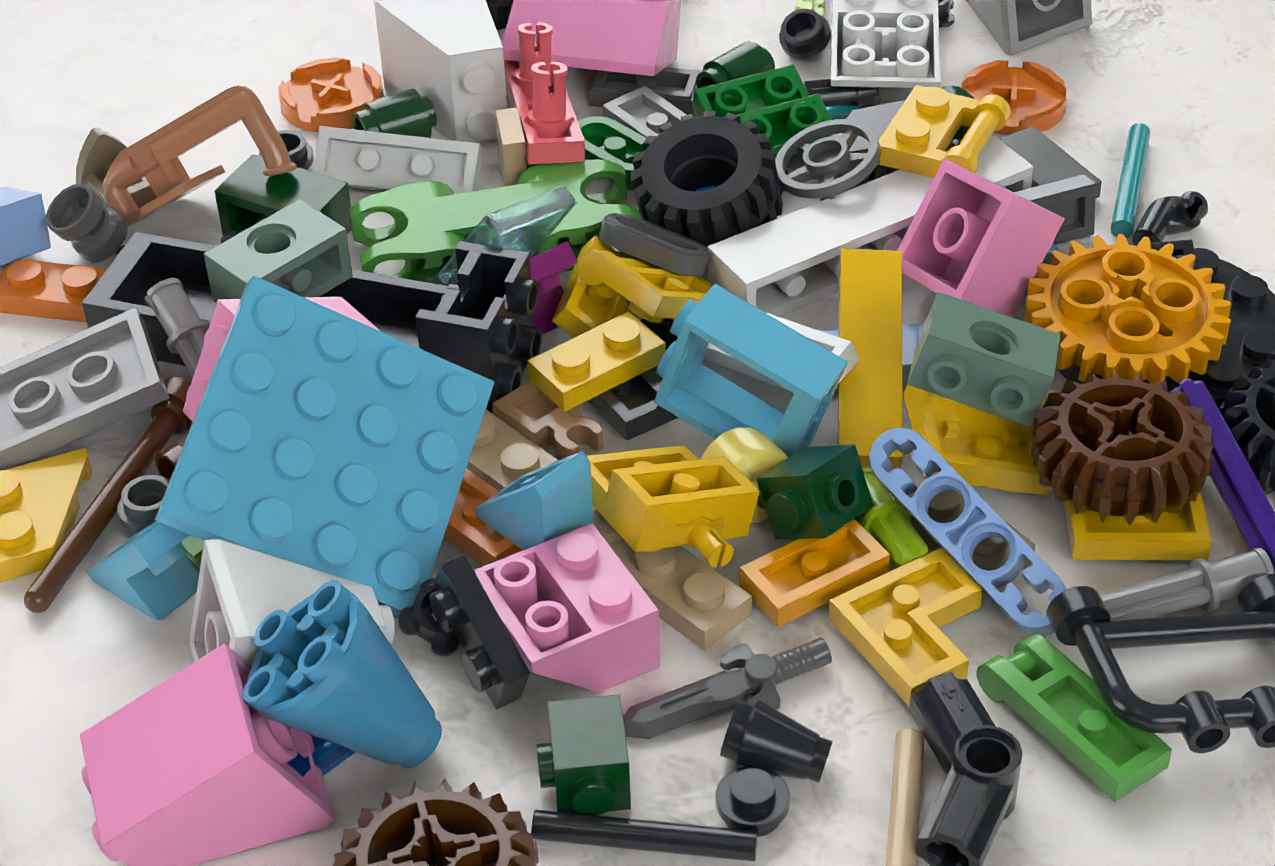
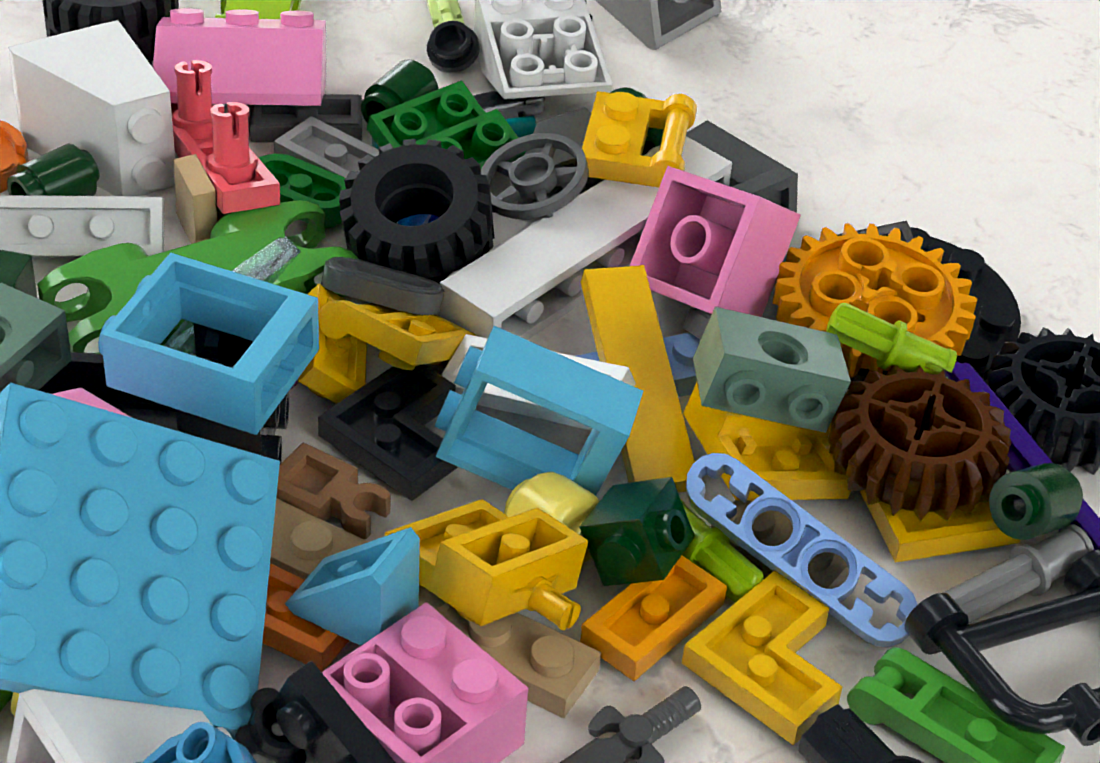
camera: 20 degrees left, 0 degrees up
(515, 280) = (242, 397): none -> medium azure window
(596, 361) = (362, 420): yellow plate -> none
(1032, 92) = (682, 76): orange tile -> none
(1113, 348) = (888, 341): none -> lime axle
(1130, 180) = (814, 166): teal bar -> none
(1171, 216) = (864, 198): black arm -> none
(1222, 517) = (1035, 501): none -> dark green brick

